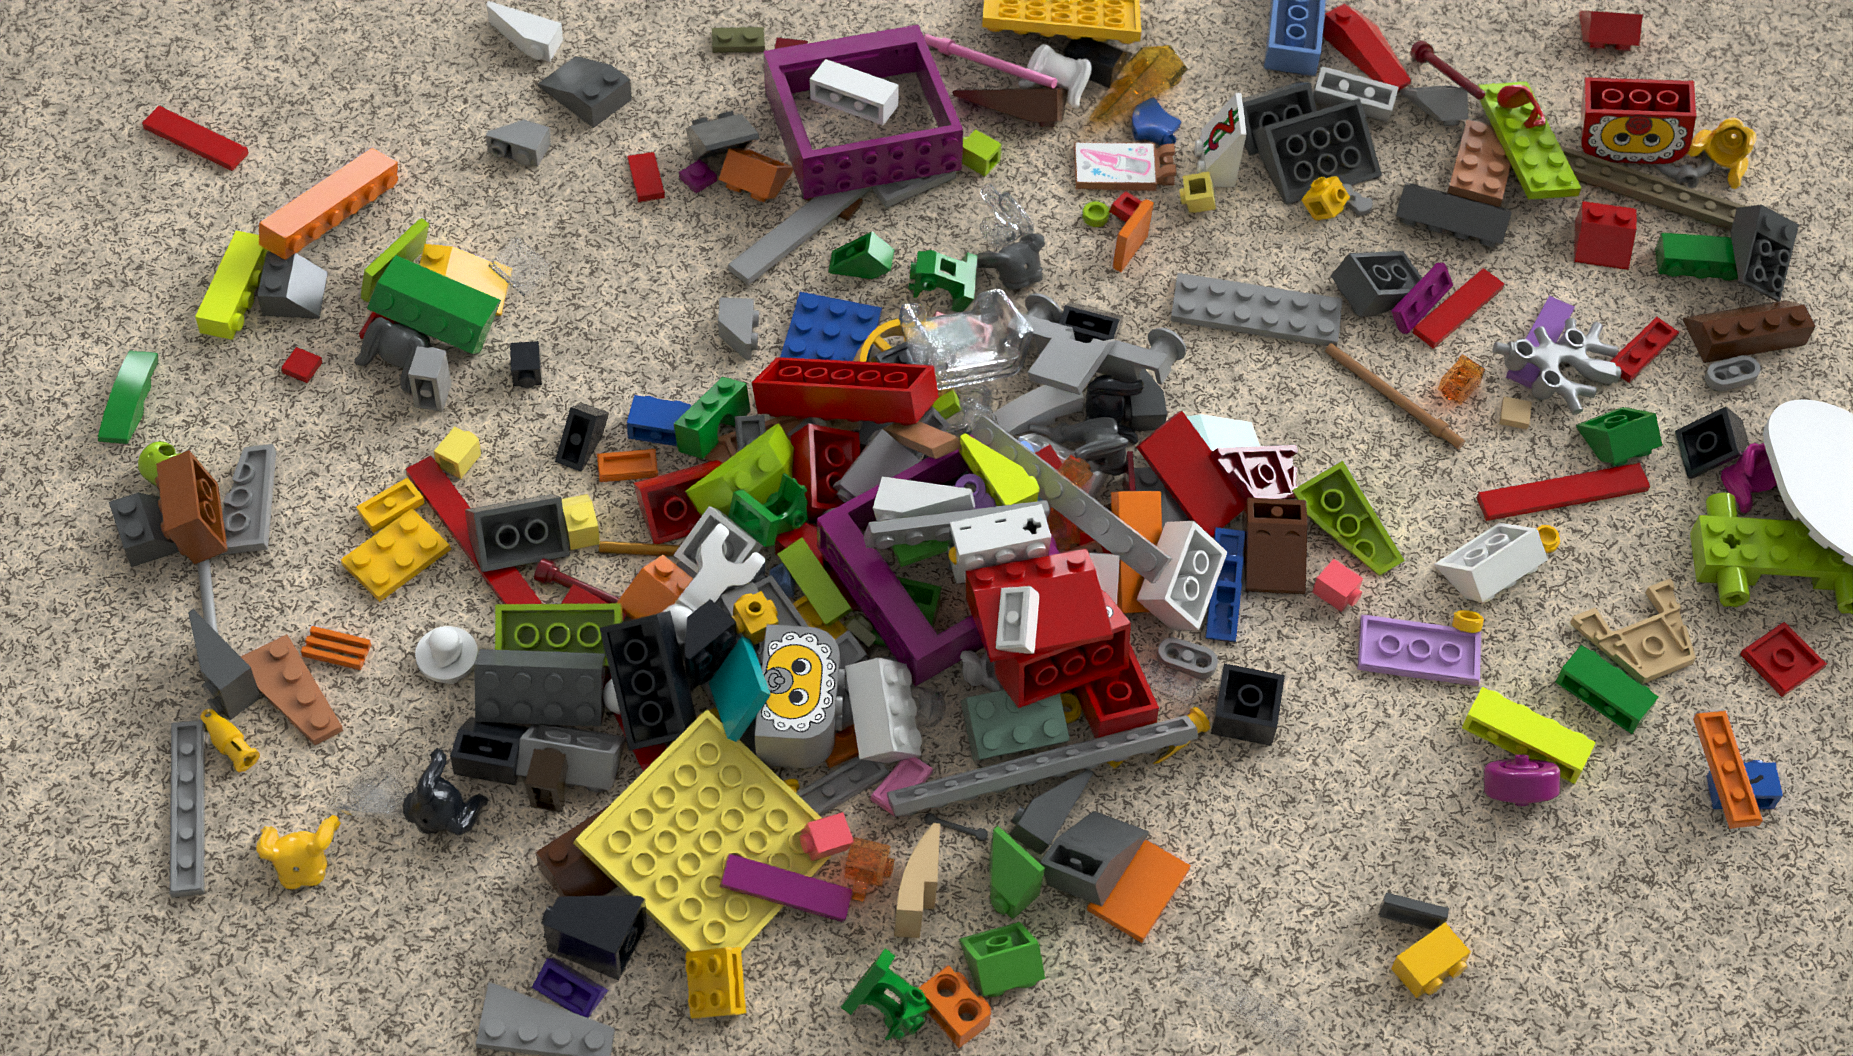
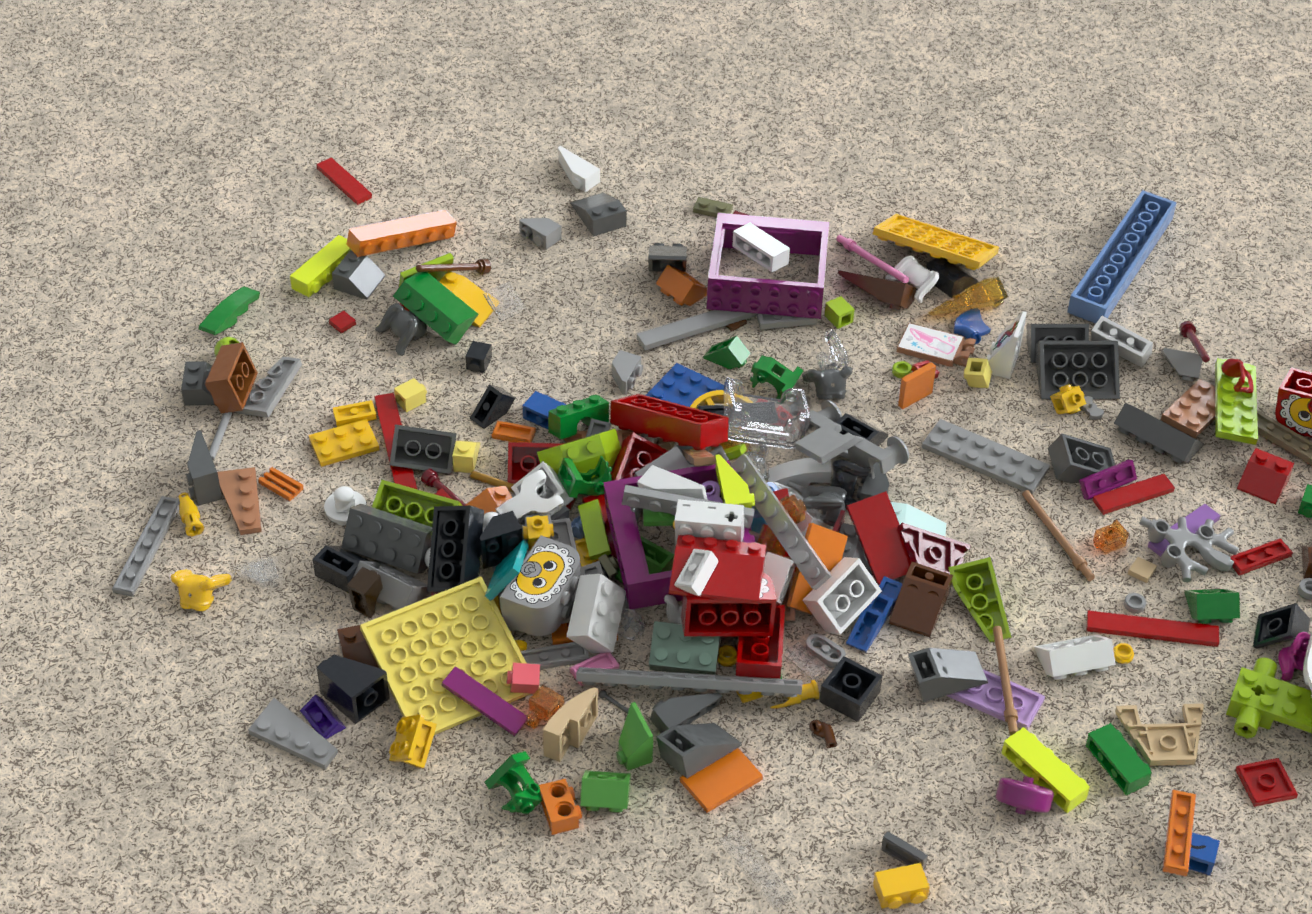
camera: 25 degrees right, 10 degrees down
(430, 378) = (412, 347): light grey brick -> none
(439, 805) = (293, 586): black hair -> none
(461, 221) = (481, 266): none -> reddish brown piece
(646, 177) = (611, 272): red tile -> none
(697, 176) = (645, 280): magenta plate -> none
(1237, 774) = (824, 731): none -> reddish brown arm
(1338, 585) = (954, 635): coral brick -> none
(1353, 641) = (945, 671): none -> dark grey slope
(1363, 45) = (1146, 314): red wedge -> none
(1455, 672) = (1010, 712): none -> medium nougat bar
(1468, 621) = (1038, 687): yellow tile -> none
(1527, 462) = (1135, 603): none -> light grey tile

